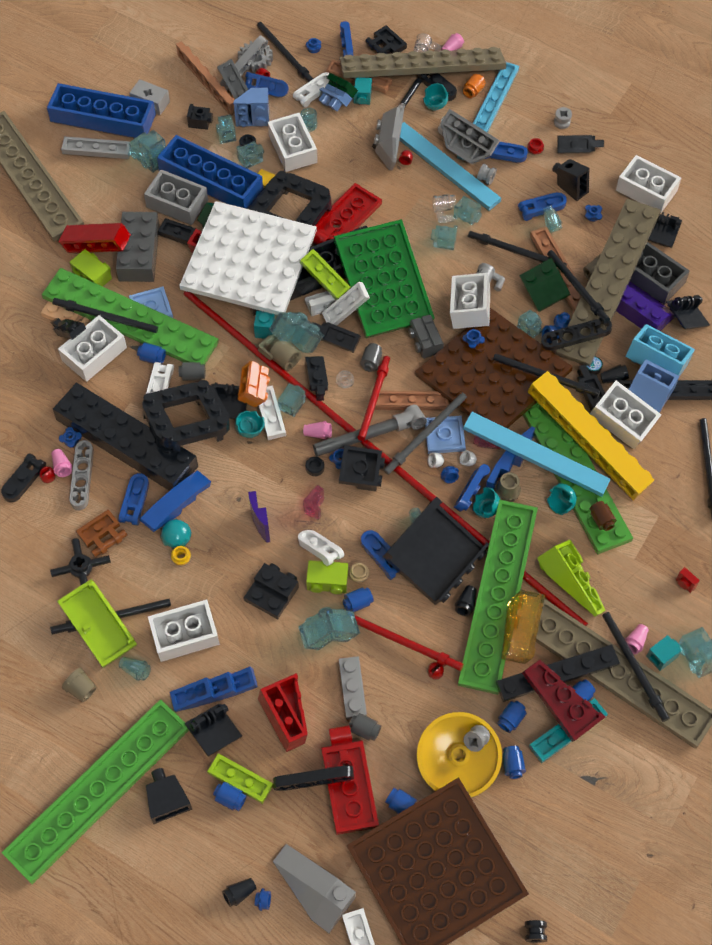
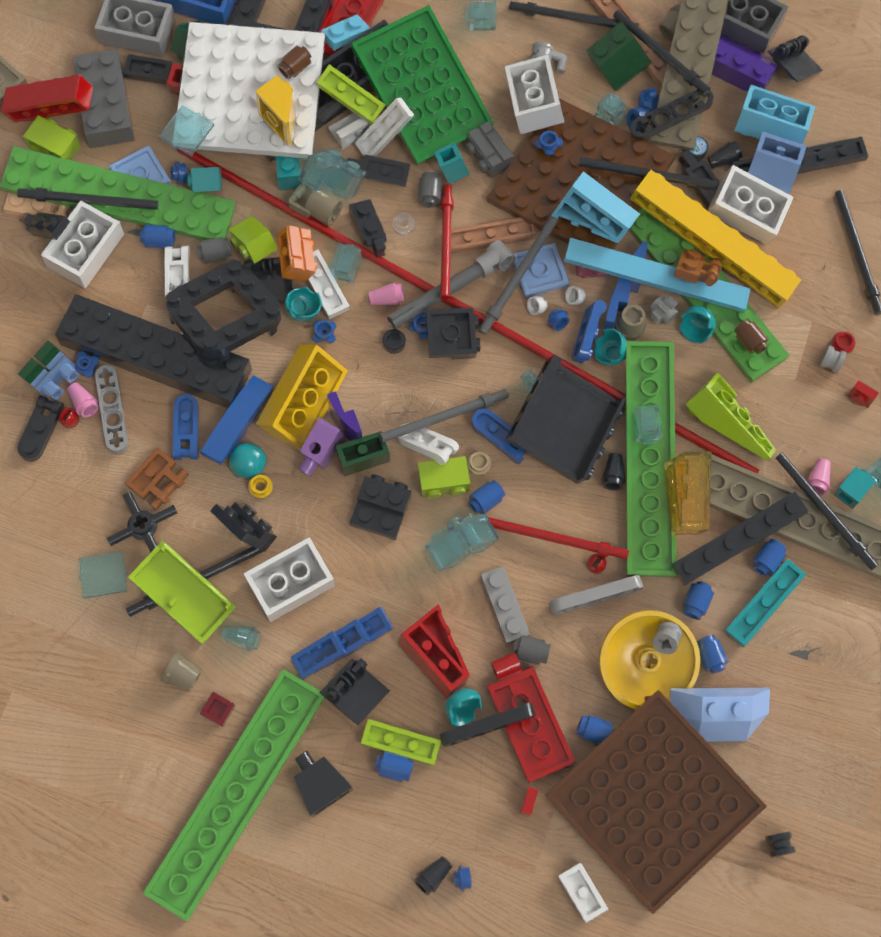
camera: 15 degrees left, 10 degrees up
(40, 598) = (103, 575): none -> clear light blue piece
(49, 435) = (47, 381): none -> medium blue hips
(100, 720) = (217, 709): none -> dark red plate
(159, 580) = (245, 525): none -> black plate
(180, 310) = (179, 172): none -> blue plate
(191, 277) = (186, 130): none -> clear light blue piece
(199, 318) = (205, 179): none -> teal brick
(222, 368) = (252, 239): none -> lime brick
(228, 495) = (301, 395): none -> yellow slope
(235, 533) = (323, 437): none -> medium lavender torso
(261, 443) = (320, 326): none -> blue plate
(264, 271) = (277, 107): none -> yellow slope
(267, 545) = (362, 454): none -> dark green brick
(286, 242) = (294, 62): none -> reddish brown brick
(296, 759) = (461, 706): none -> teal hair
(313, 501) = (403, 385): clear pink bracket -> none
(316, 889) = (520, 852): light grey wedge -> none
(330, 229) = (344, 32): none -> medium azure plate
(332, 849) = (529, 802): none -> red tile
(375, 525) = (484, 401): none -> dark grey bar
(393, 340) = (452, 163): none -> teal brick
(428, 694) = (596, 595): none -> light grey beam
(496, 392) = (596, 209): none -> medium azure wedge
(500, 566) = (647, 424): none -> clear light blue brick
(511, 811) = (722, 712): none -> light blue wedge
(537, 482) = (664, 310): none -> light grey gear
(567, 707) = (762, 578): dark red wing -> none
(568, 452) = (694, 267): none -> dark orange plate
(668, 548) = (833, 359): none -> light grey wheel
(680, 537) = (843, 342): none -> red plate

